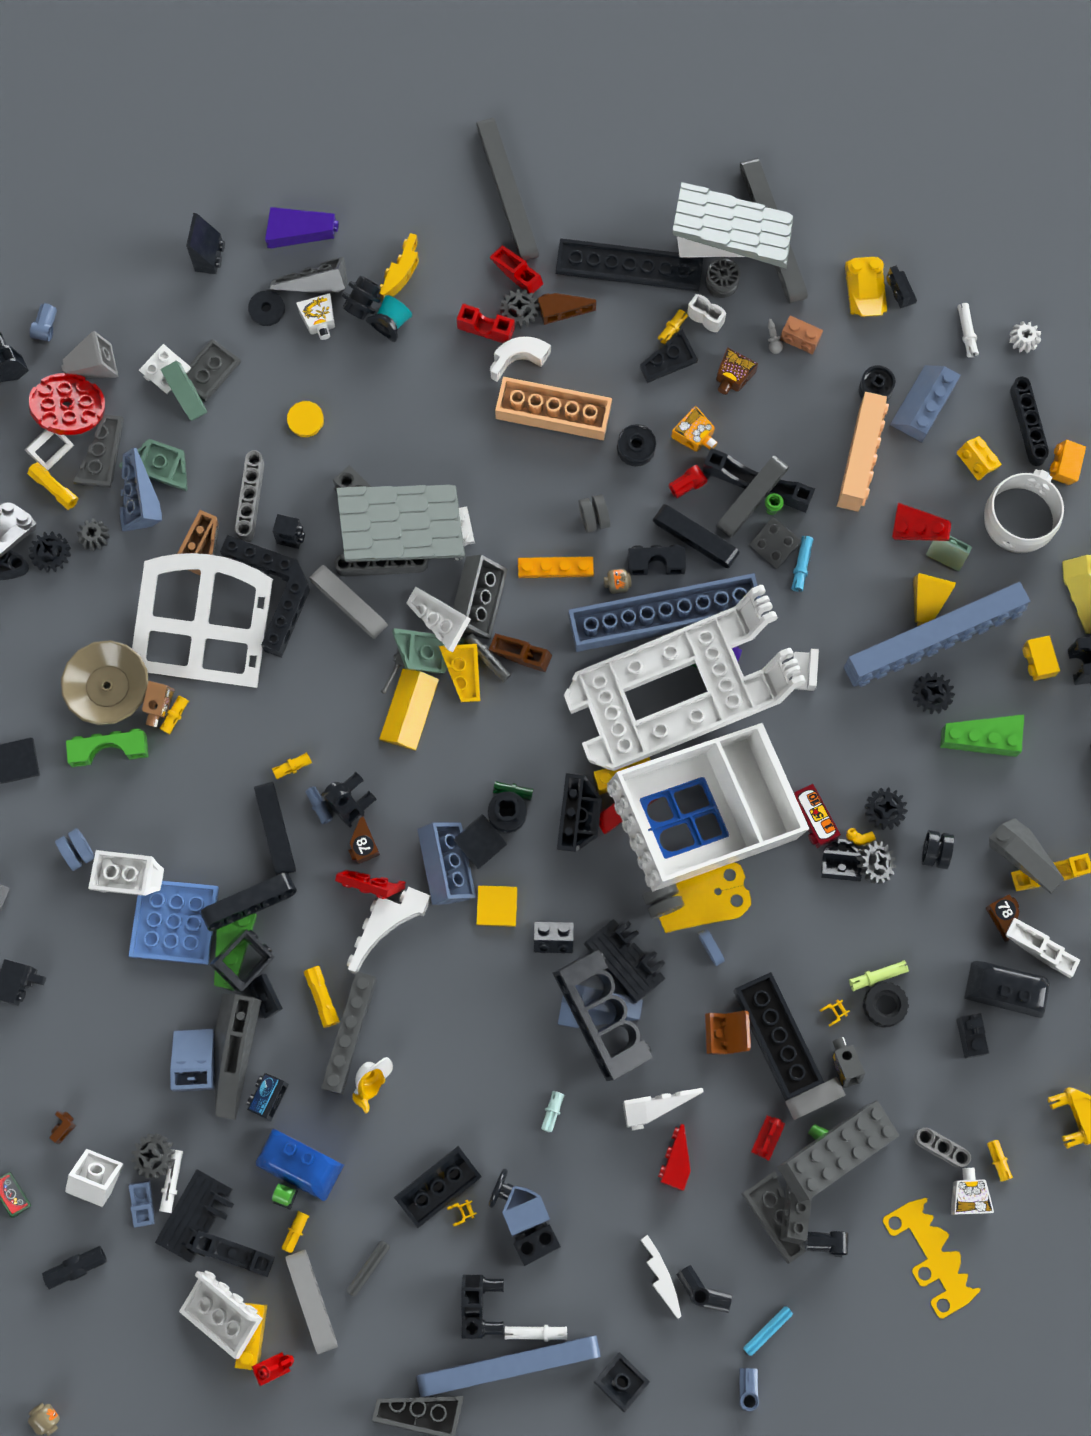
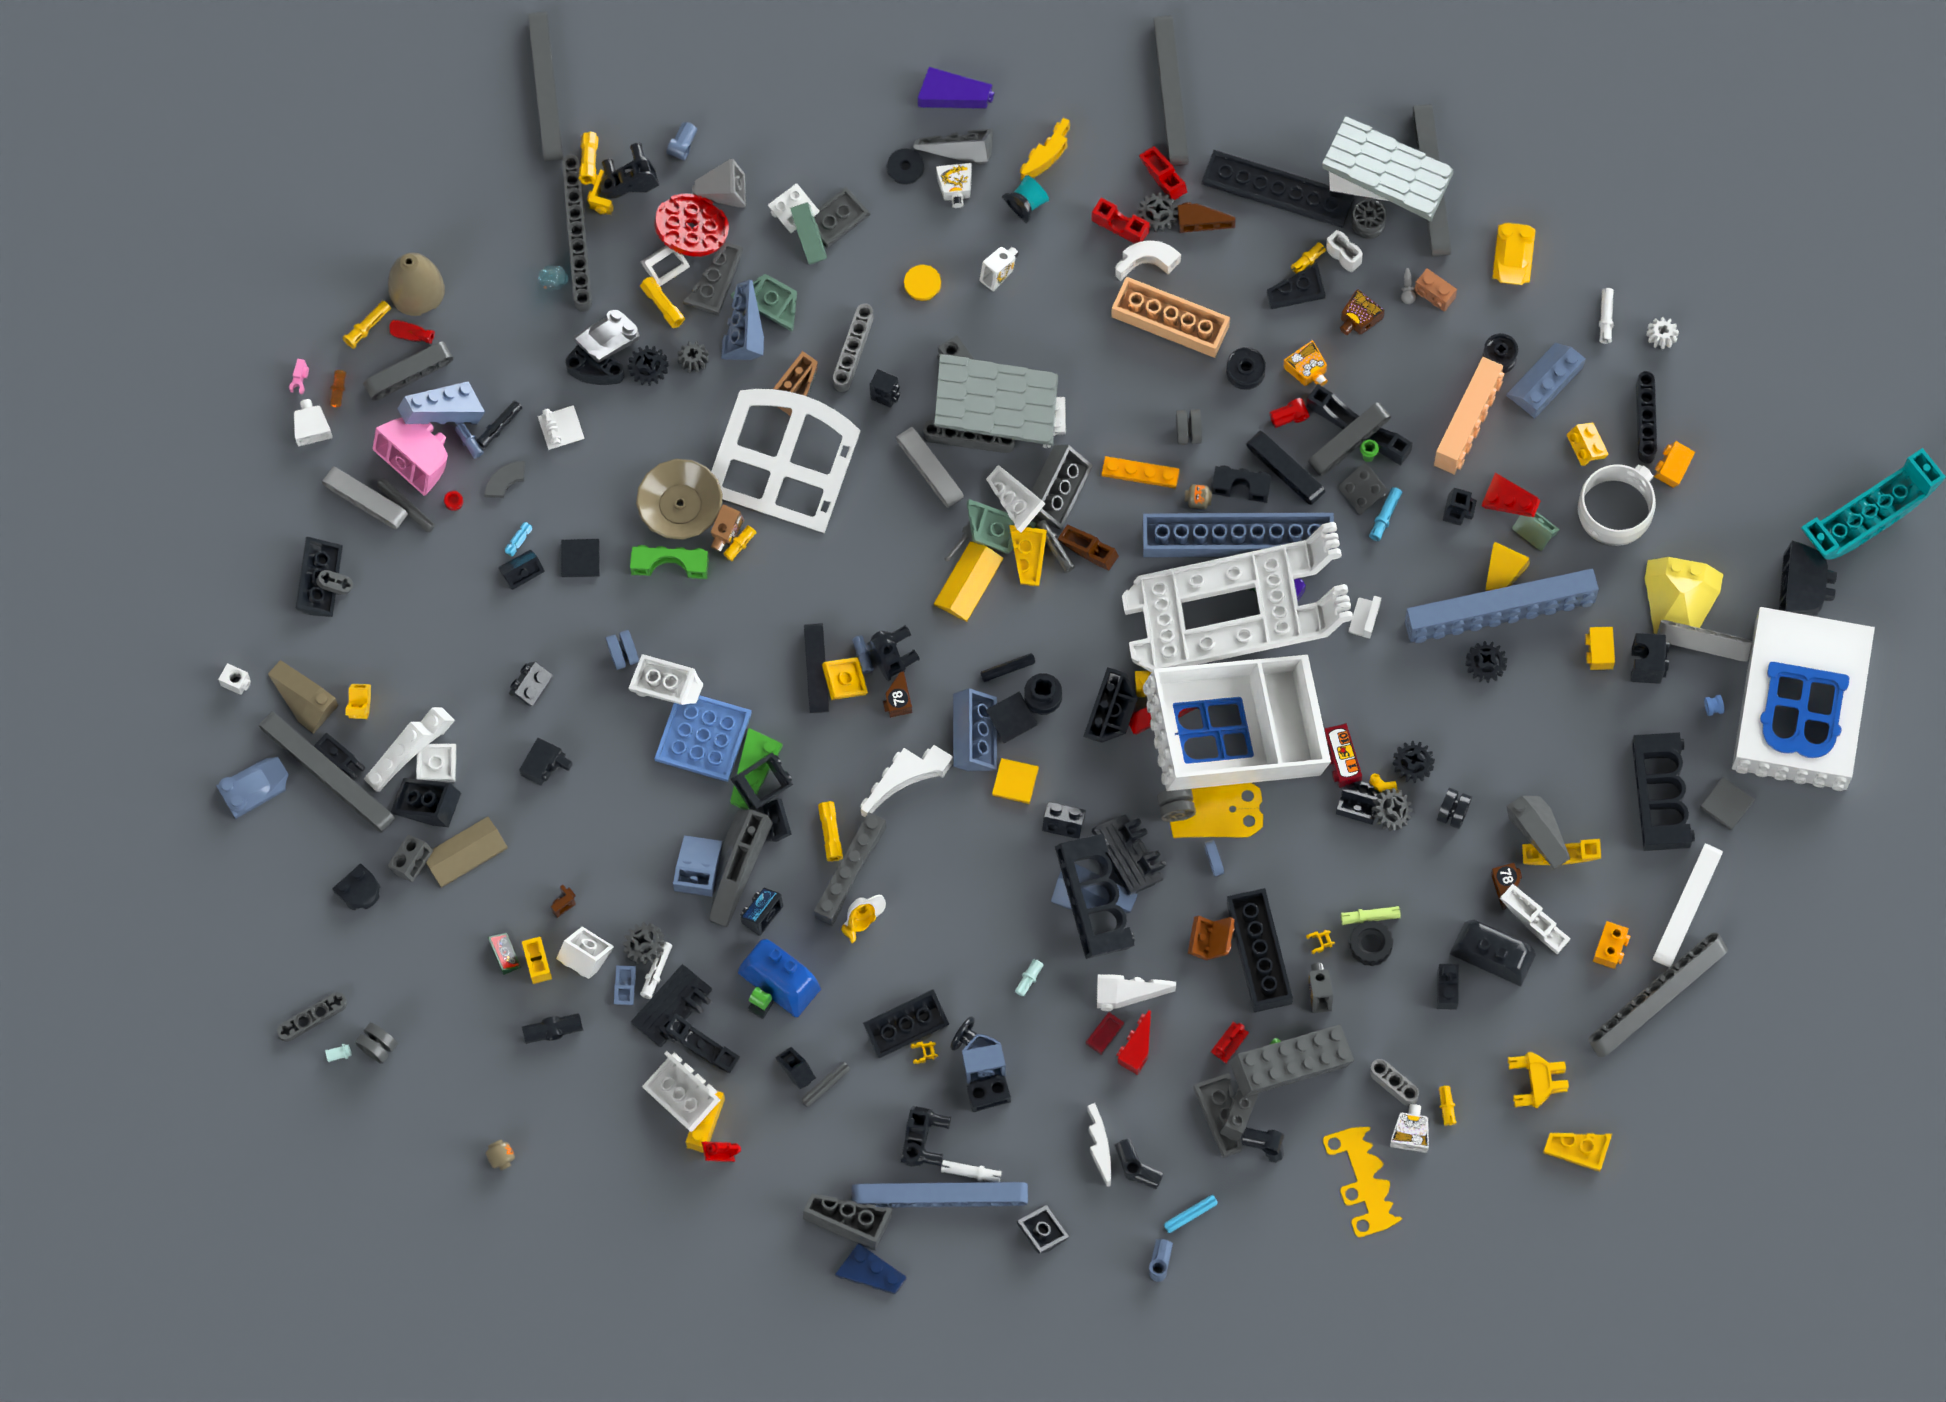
camera: 15 degrees right, 5 degrees down
(44, 1198) = (536, 960): none -> yellow brick
(204, 246) = (856, 94): black slope -> none
(248, 902) = (778, 729): black beam -> none
(291, 765) = (843, 612): yellow pin -> none
(293, 595) = (875, 454): black brick -> none
(295, 1232) = (763, 1037): yellow axle -> none
(305, 834) = (844, 678): none -> yellow tile
(311, 1302) = (767, 1102): light grey beam -> none
(334, 1258) = (796, 1067): none -> black slope
(361, 298) = (1002, 173): black piece -> none
(363, 882) = (892, 735): red wing -> none
(375, 390) = (998, 267): none -> white torso
(466, 790) = (1007, 667): none -> black axle
(524, 793) = (1064, 680): dark green pin -> none
(640, 1153) = (1105, 1033): none -> dark red tile
(815, 1098) = (1283, 1014): light grey beam -> none
(871, 542) = (1459, 506): none -> black brick
(901, 287) = (1548, 259): black bracket -> none
(988, 736) = (1527, 711): bright green wedge -> none

